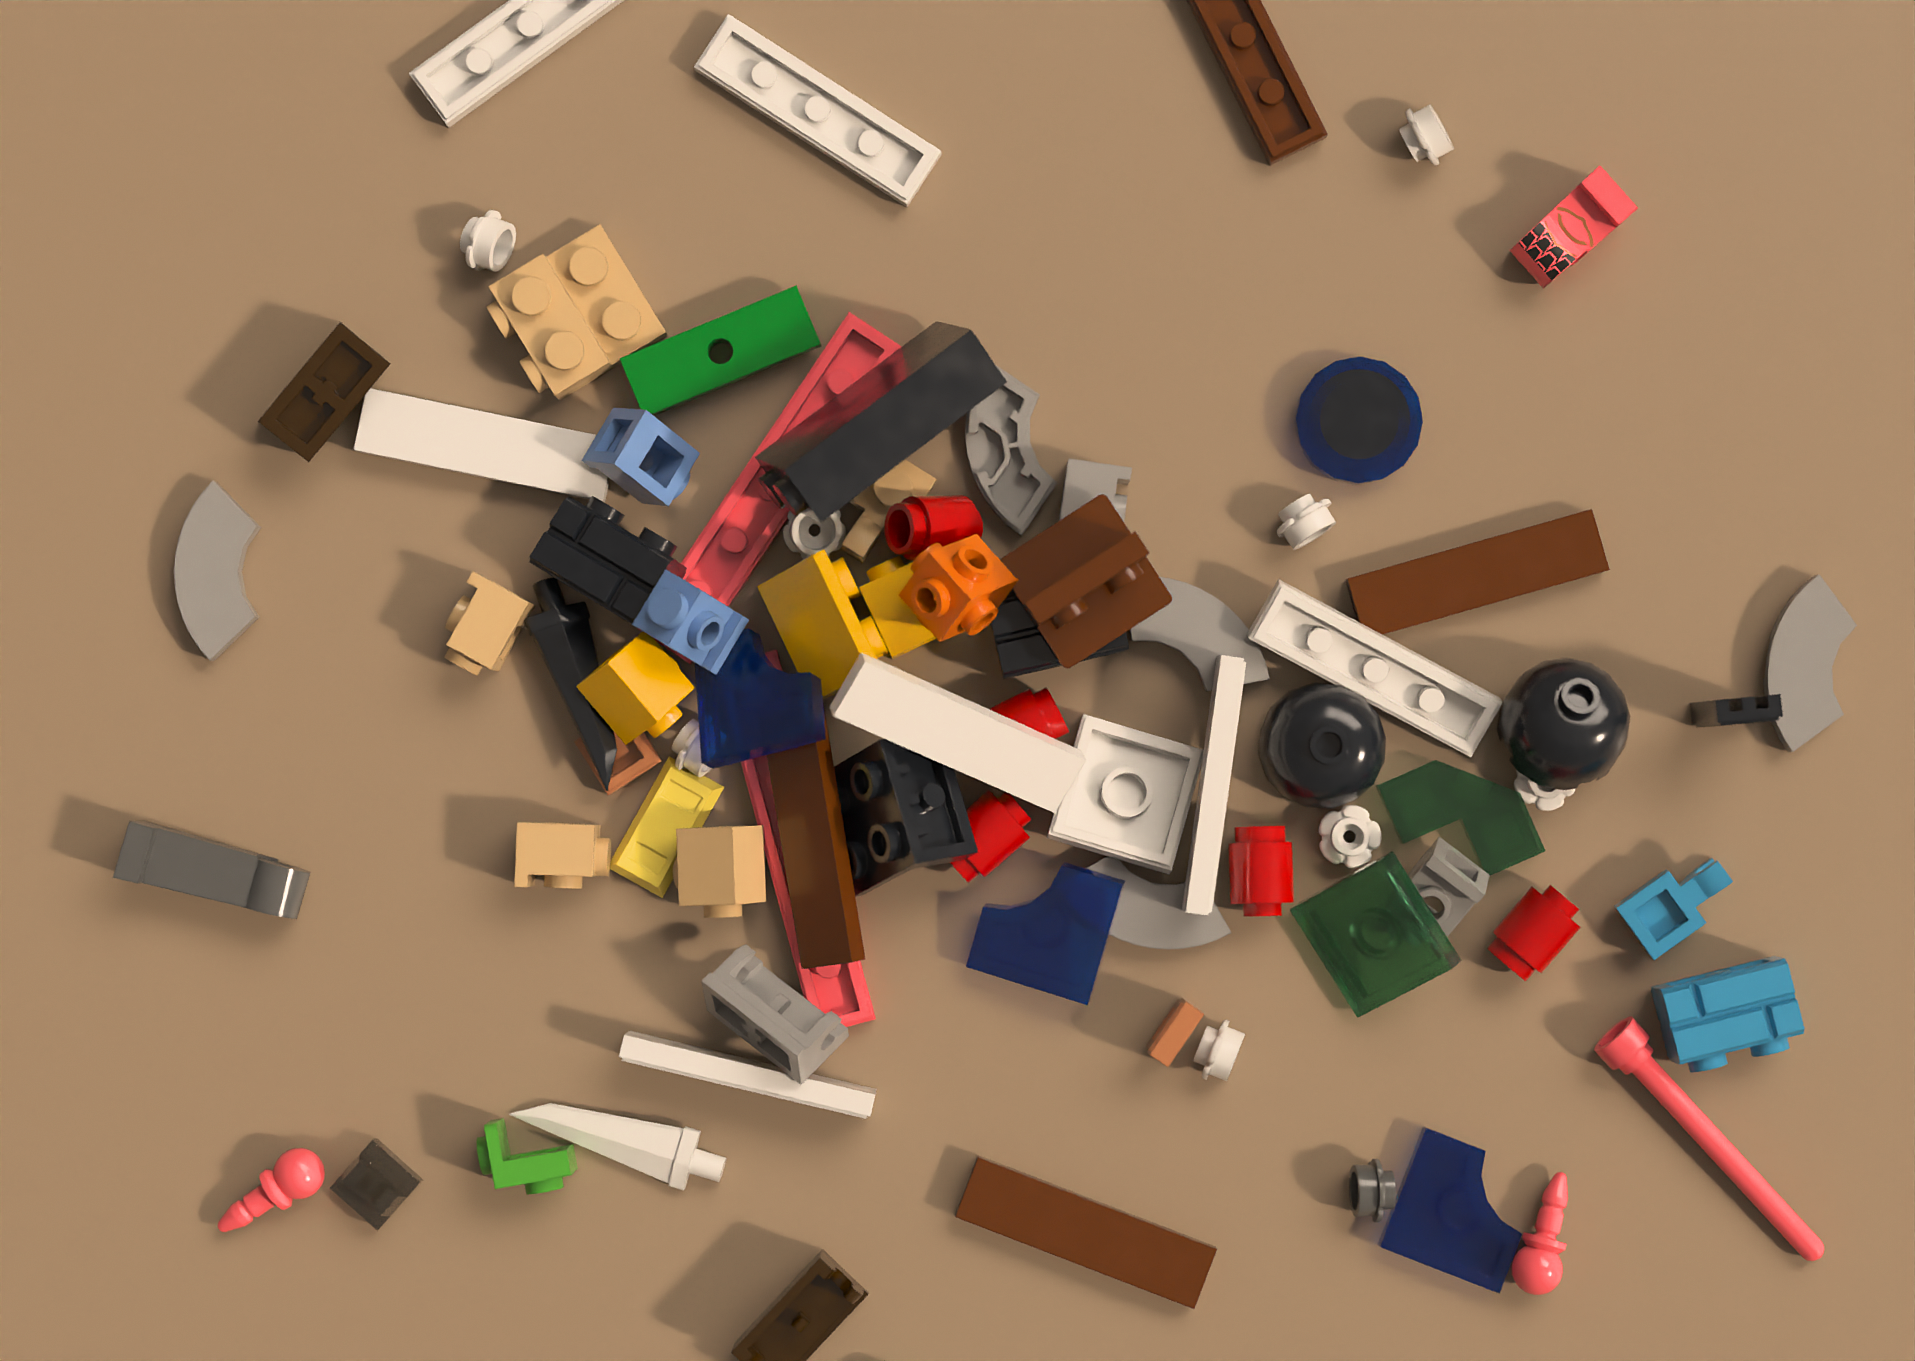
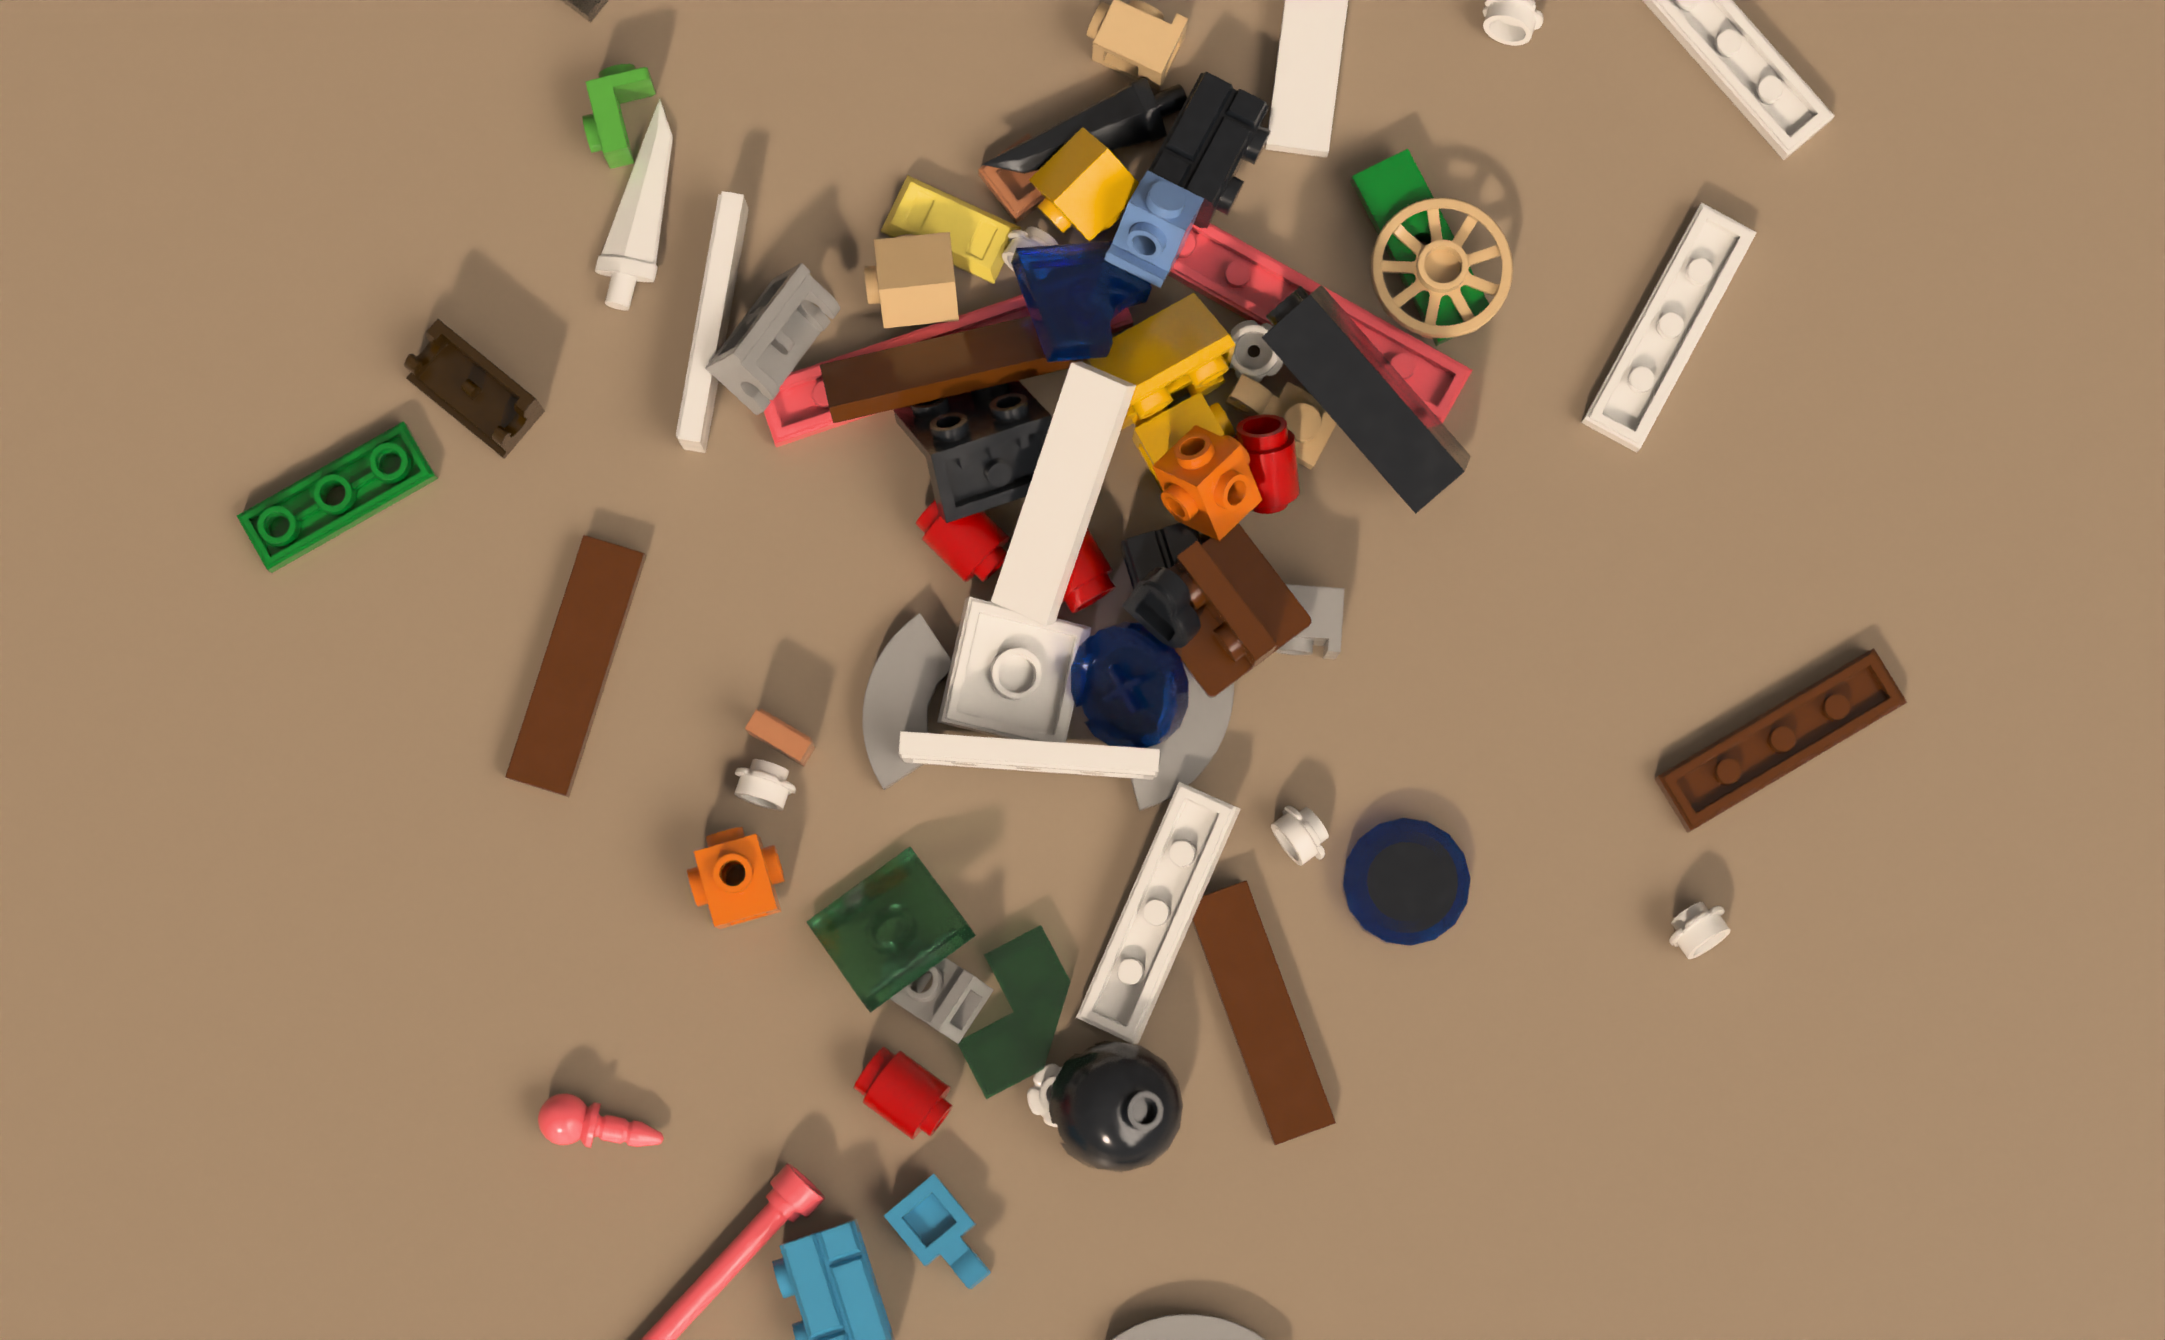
camera: 80 degrees right, 5 degrees down
(560, 853) = (918, 125): tan brick -> none
(574, 313) = (1448, 104): tan plate -> none
(642, 456) = (1313, 200): medium blue brick -> none
(747, 335) = (1441, 268): none -> tan wheel
(1003, 456) = (1347, 530): light grey tile -> none
(1052, 939) = (865, 612): clear blue tile -> none
(1085, 640) = (1163, 607): none -> black tile
(1151, 679) = (1129, 686): none -> clear blue tile
(1261, 870) = (947, 813): red brick -> none
(1322, 745) = (1076, 867): black cylinder -> none
(1338, 1087) = (754, 895): none -> orange brick
(1366, 836) = (1005, 900): white plate -> none
(1371, 1190) = (633, 947): dark grey plate -> none
(1445, 1214) = (610, 1026): clear blue tile -> none
(1573, 227) = (1618, 1083): coral leg -> none
(1736, 711) = (1141, 1278): black tile -> none

